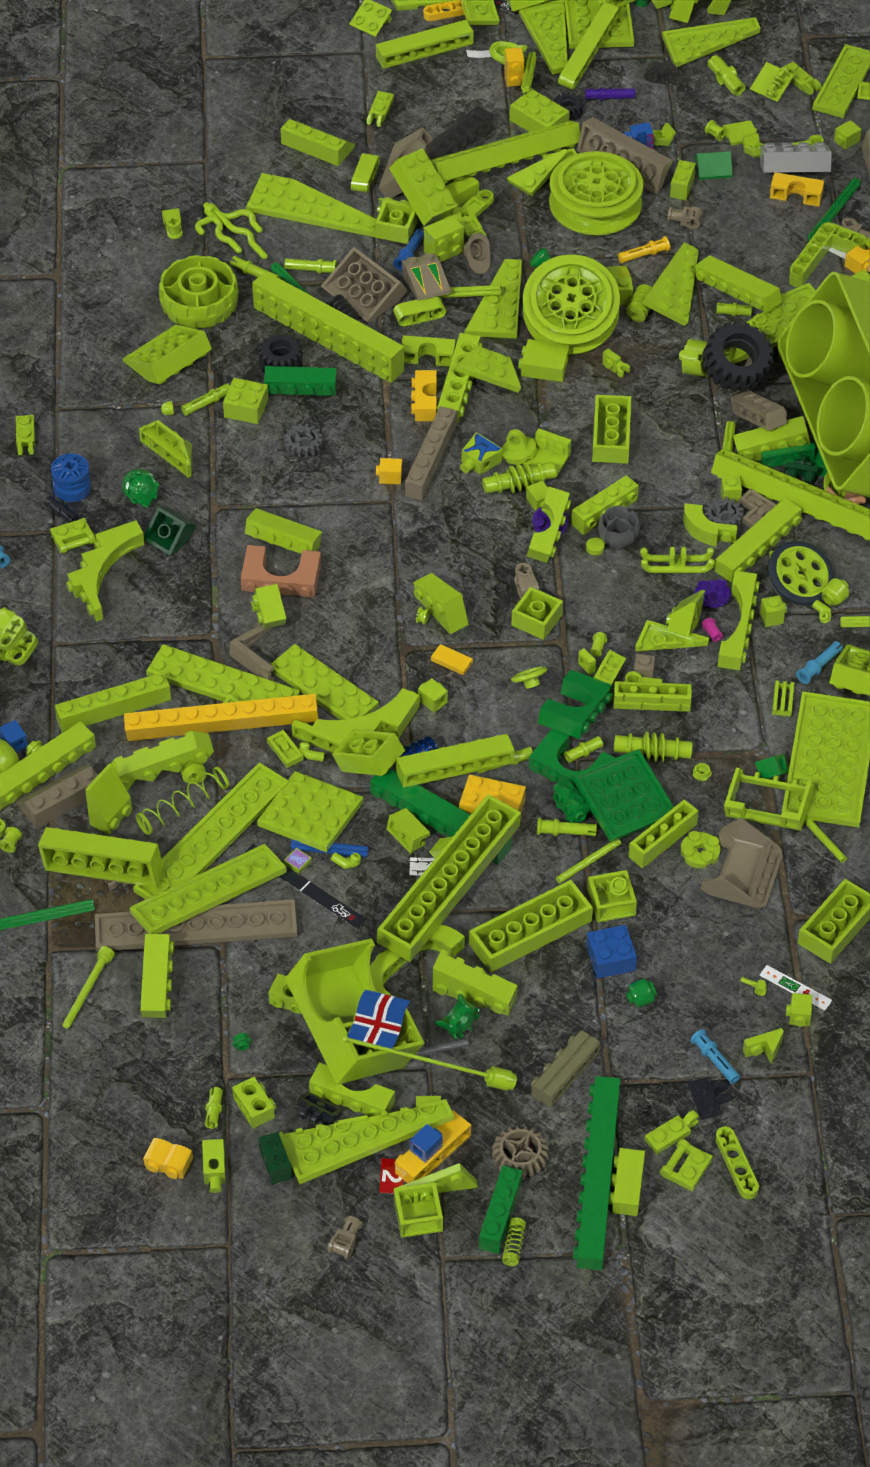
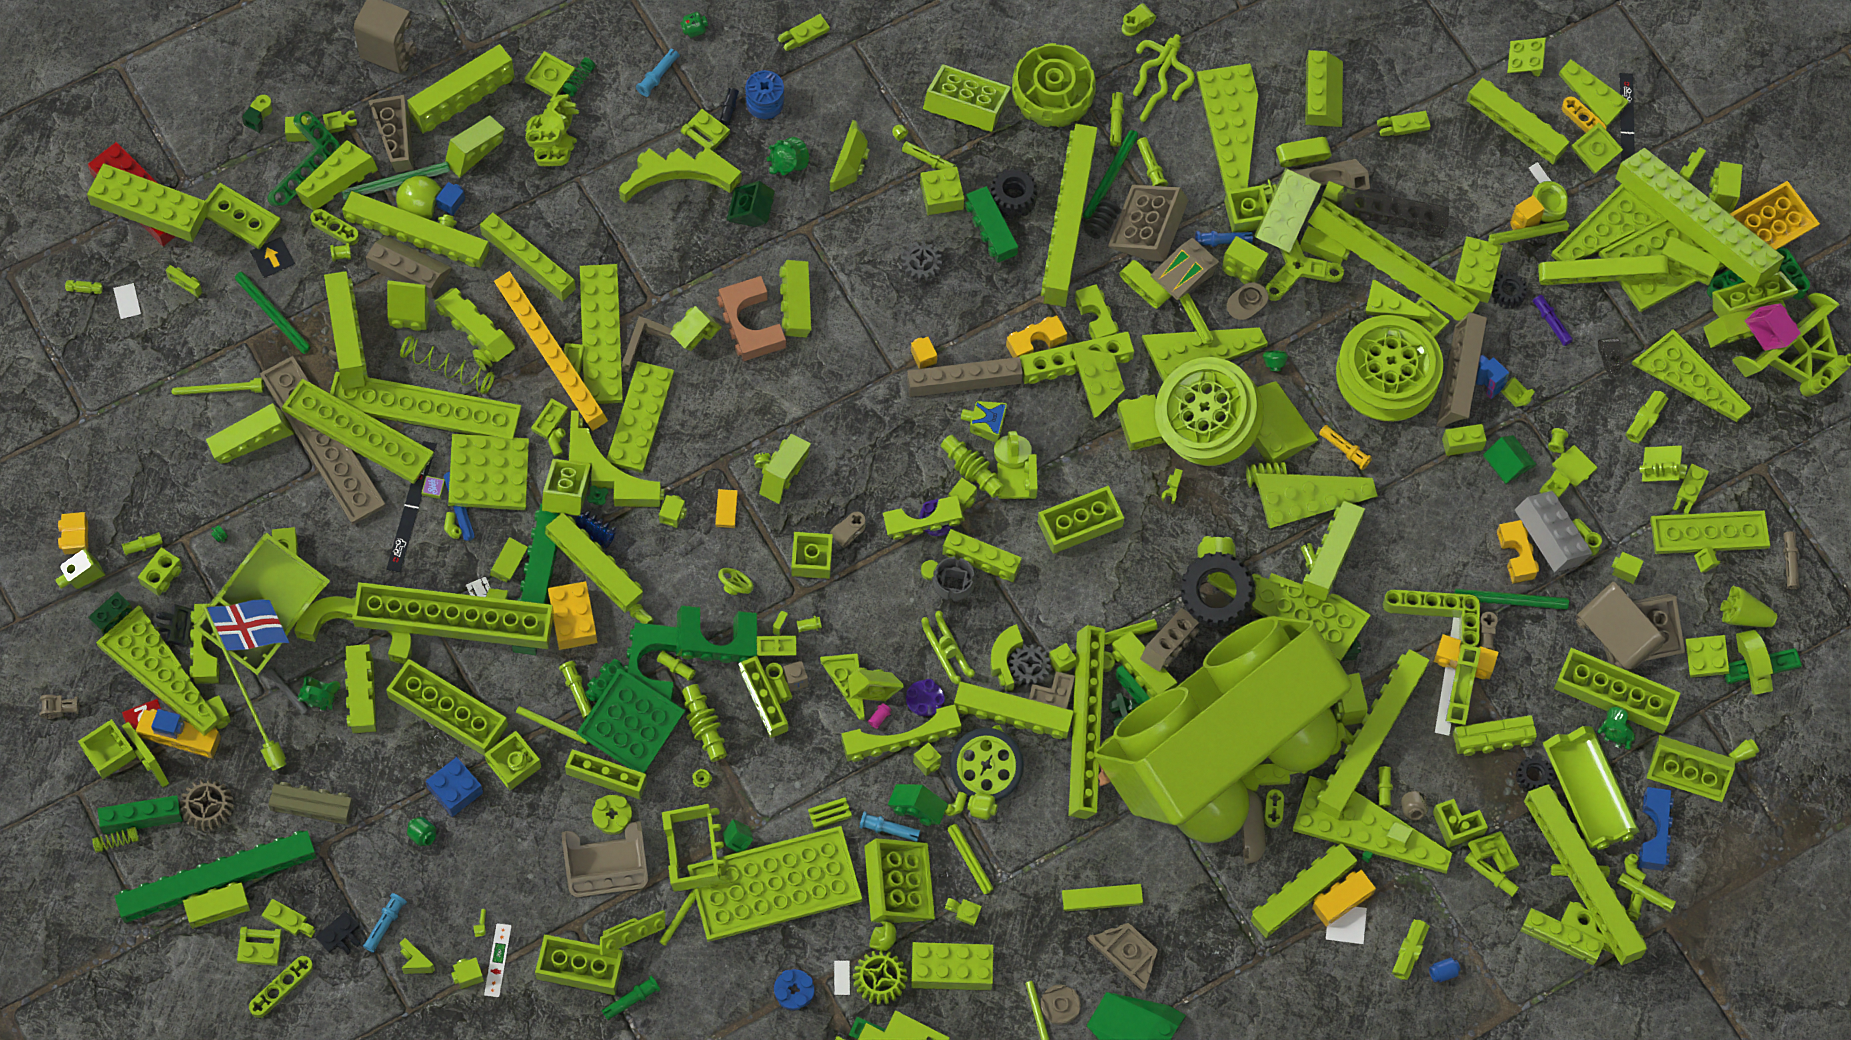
camera: 60 degrees right, 15 degrees up
(686, 216) = (1415, 465): dark tan connector -> none
(809, 629) = (918, 802): none -> green brick
(827, 873) = (631, 931): none -> lime bracket

